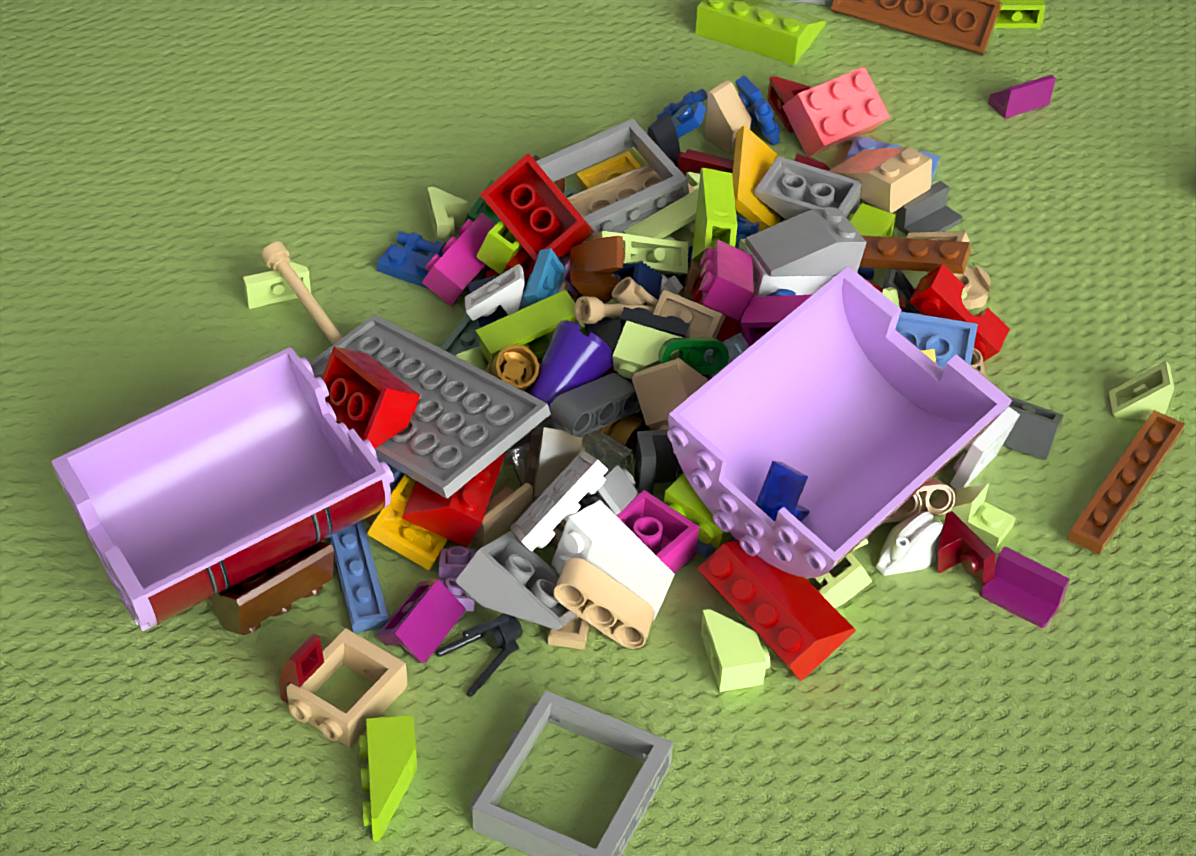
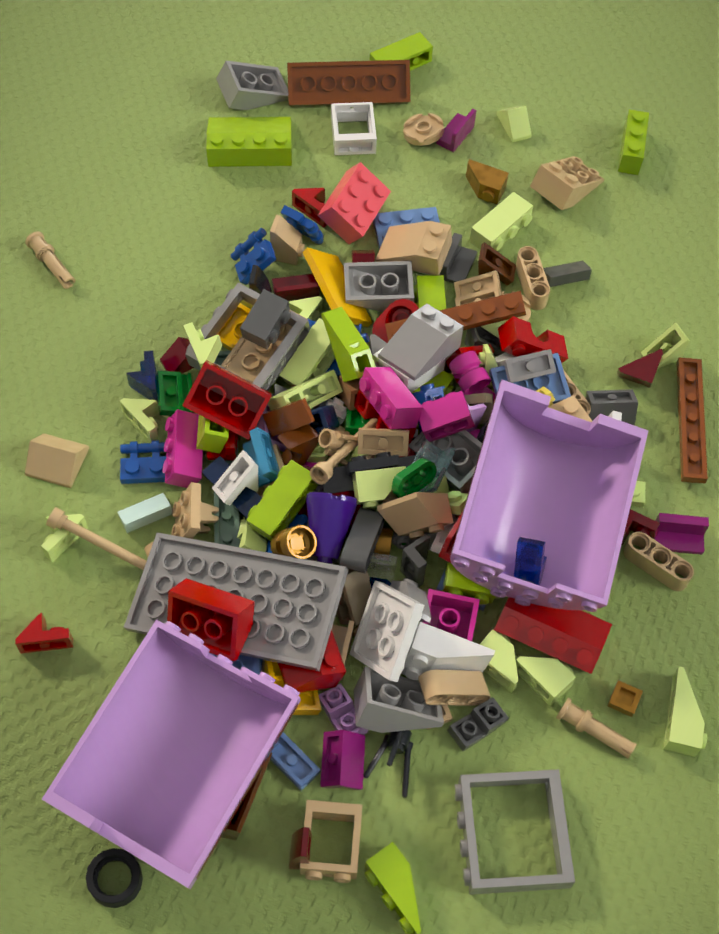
camera: 30 degrees left, 15 degrees up
(89, 628) = (101, 860): none -> black tyre
(182, 361) = (38, 638): none -> red slope
(321, 218) = (55, 459): none -> tan slope
(381, 304) = (145, 512): none -> light aqua slope
(429, 316) = (192, 513): none -> tan plate
(453, 42) = (45, 253): none -> tan pin
(471, 184) = (145, 380): none -> clear blue slope
(553, 160) = (203, 348): none -> yellowish green slope
(621, 664) = (477, 724): none -> dark grey slope
(635, 156) = (266, 319): none -> dark grey brick
(684, 608) = (503, 663): none -> yellowish green slope
(749, 720) = (585, 722): none -> tan pin
(820, 721) = (625, 698): none -> pearl gold plate
(876, 784) = (684, 720): none -> yellowish green slope
(887, 65) = (353, 143): none -> white window
(930, 321) = (529, 366): none -> light grey panel
(967, 218) = (492, 260): none -> reddish brown slope
(971, 602) = (654, 550): none -> tan beam
(979, 81) = (423, 129): none -> tan tile
(1011, 198) = (502, 222): none -> yellowish green brick
(1013, 263) = (532, 277): none -> tan beam
(1025, 155) = (486, 181): none -> pearl gold slope
(1063, 279) = (567, 273): none -> dark grey slope
(1094, 401) = (642, 370): none -> dark red slope
(1104, 113) = (515, 122): none -> yellowish green slope
(1128, 188) = (565, 181): none -> tan slope

